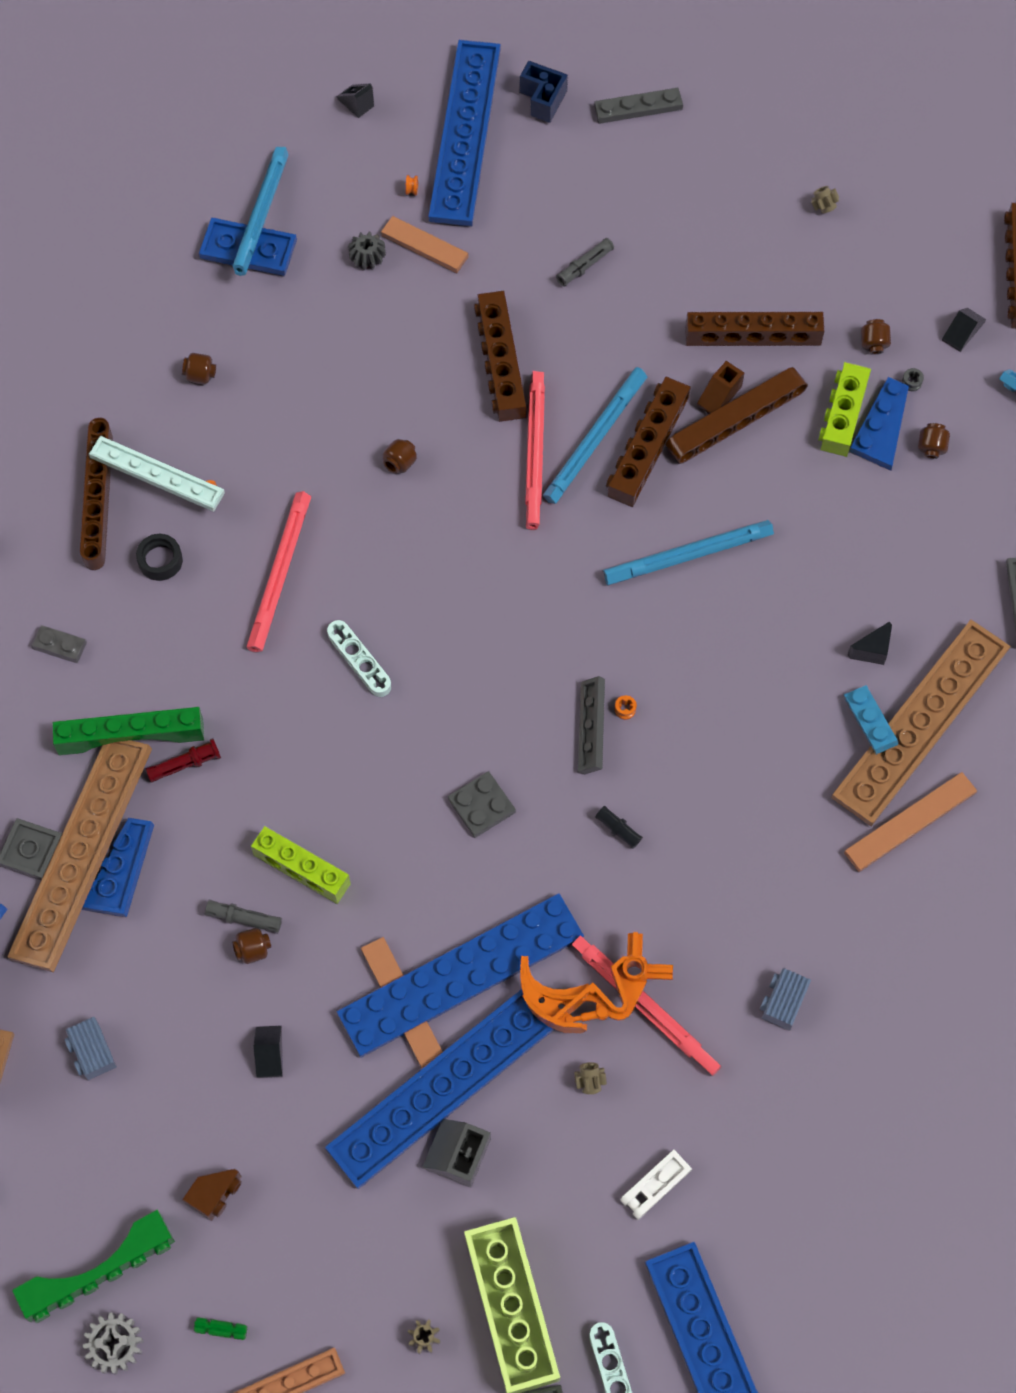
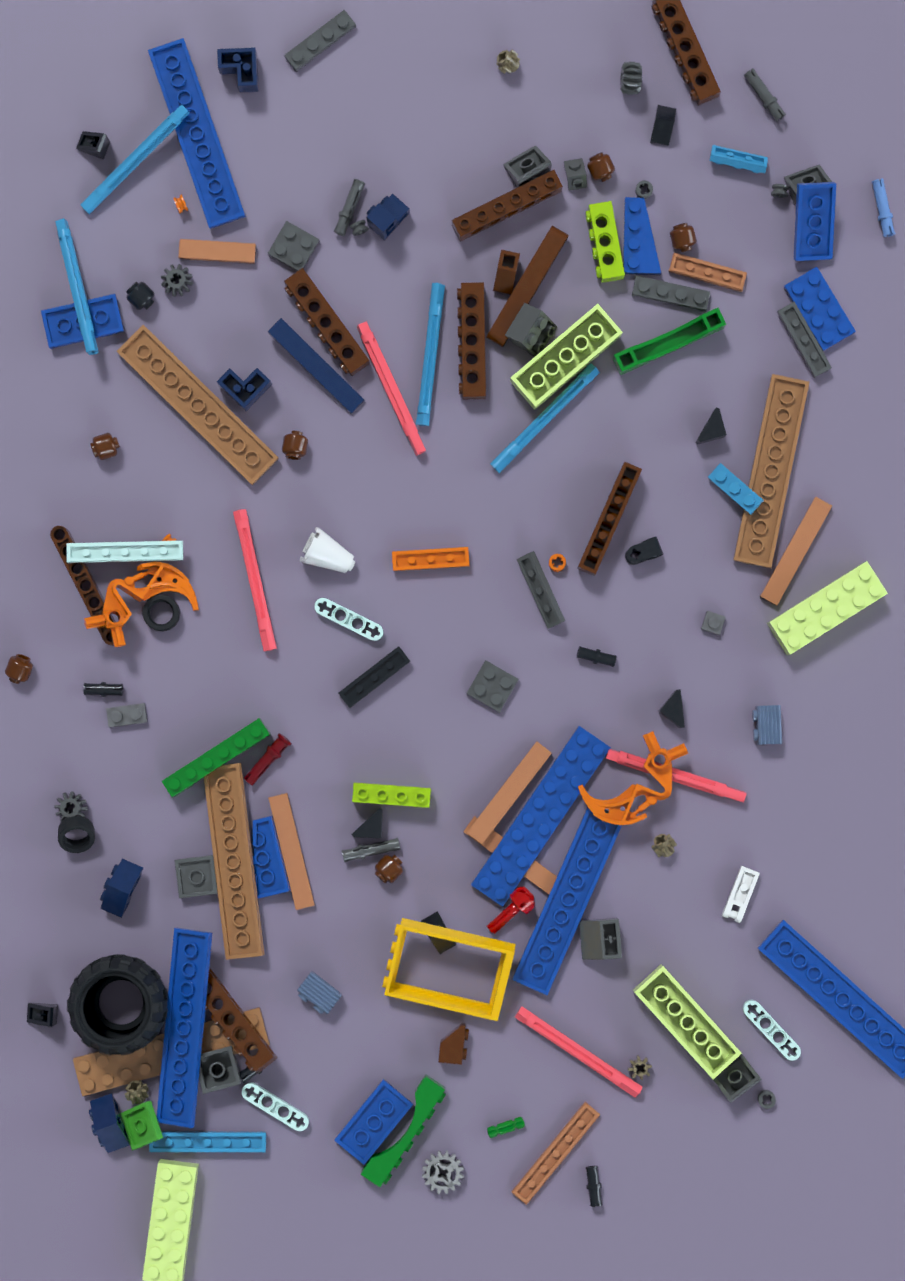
camera: 30 degrees left, 20 degrees up
(50, 605) = (103, 689): none -> black pin
(66, 1237) = (373, 1121): none -> blue plate
(113, 519) = (115, 605): none -> orange piece
(152, 876) = (291, 851): none -> nougat tile
(196, 1054) = (442, 1000): none -> yellow window
(258, 889) = (371, 827): none -> black slope
(320, 376) = (197, 404): none -> medium nougat plate
(321, 247) = (140, 295): none -> black head
(353, 730) = (374, 677): none -> black plate
(371, 1064) = (522, 901): none -> red piece
(372, 575) = (326, 553): none -> white cone
(379, 380) = (247, 391): none -> dark blue brick
(385, 1328) = (579, 1052): none -> coral piece
(389, 125) = (134, 159): none -> dark azure piece
(437, 929) = (509, 792): none -> nougat tile
(465, 390) = (315, 365): none -> dark blue slope
(484, 636) = (430, 559): none -> orange plate
(506, 273) = (293, 246): none -> dark grey plate
(585, 284) = (359, 227): none -> dark grey bush
(619, 284) = (387, 216): none -> dark blue brick
(679, 925) = (673, 709): none -> black slope
(708, 684) = (609, 518): none -> reddish brown brick
(718, 456) = (531, 330): none -> dark grey slope
(733, 738) = (647, 550): none -> black piece
(743, 498) = (566, 356): none -> yellowish green brick
(774, 855) = (713, 622): none -> flat silver plate
(797, 301) = (528, 166): none -> dark grey slope
(844, 333) = (575, 174): none -> dark grey bracket
(893, 492) = (671, 293): none -> dark grey plate
(905, 536) = (671, 341): none -> green arch
(919, 899) = (827, 608): none -> yellowish green brick
(945, 489) = (707, 272): none -> nougat tile
(950, 266) = (631, 78): none -> dark grey gear

